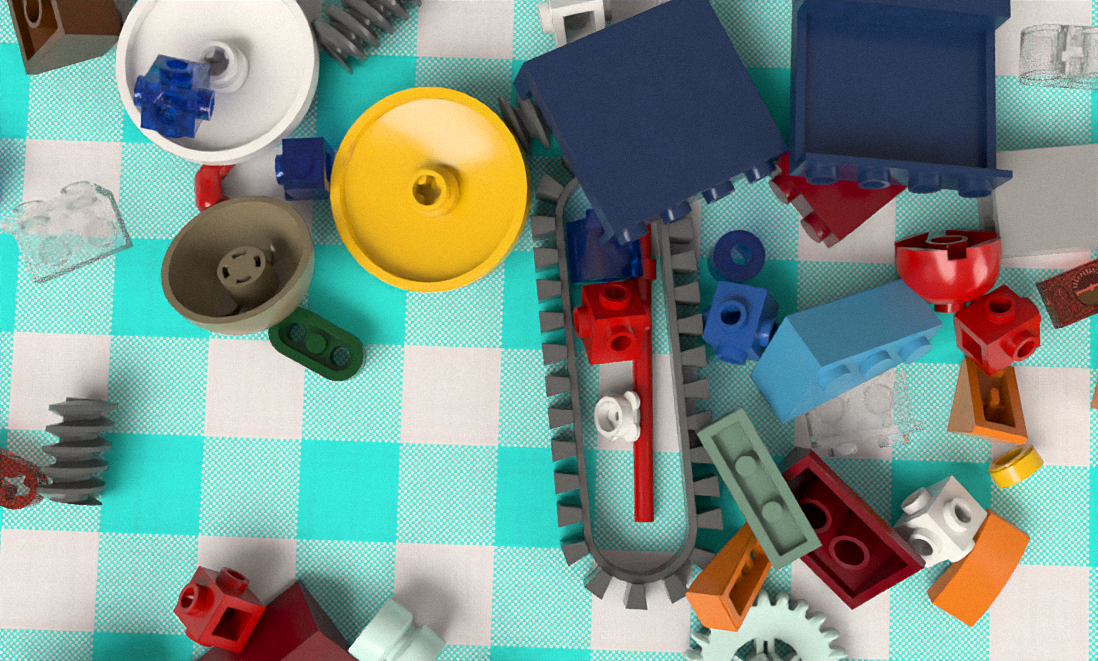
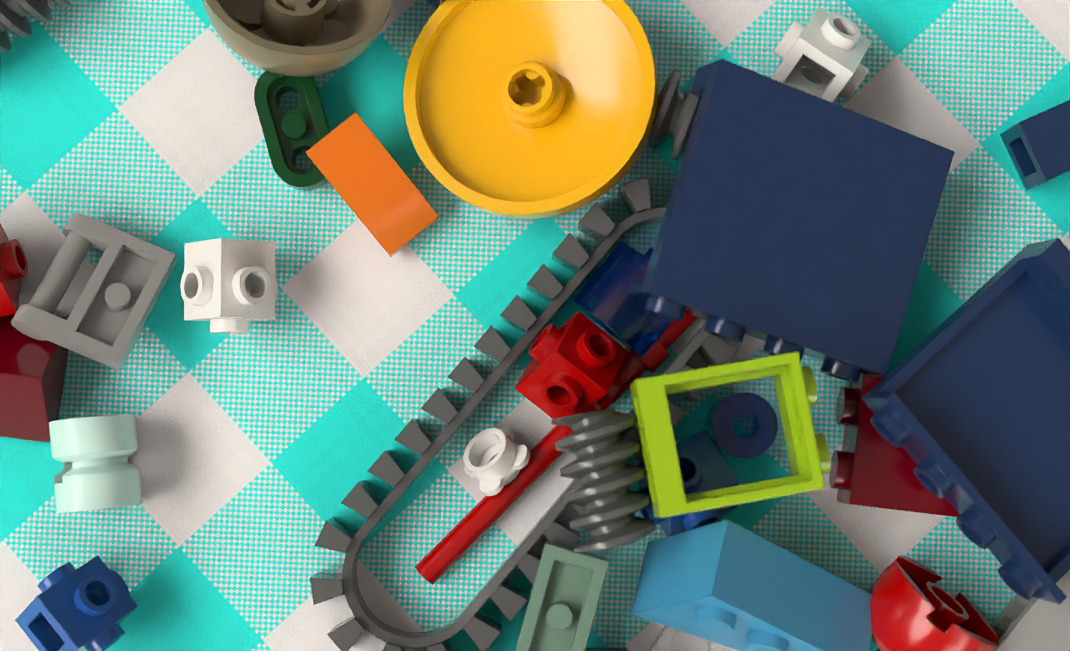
camera: 40 degrees right, 0 degrees up
(314, 546) = (114, 299): none -> light grey plate
(370, 469) = (229, 283): none -> white brick
(394, 332) = (372, 184): none -> orange slope
(694, 363) = (604, 479): none -> dark grey piece
(753, 210) = (795, 394): none -> lime window

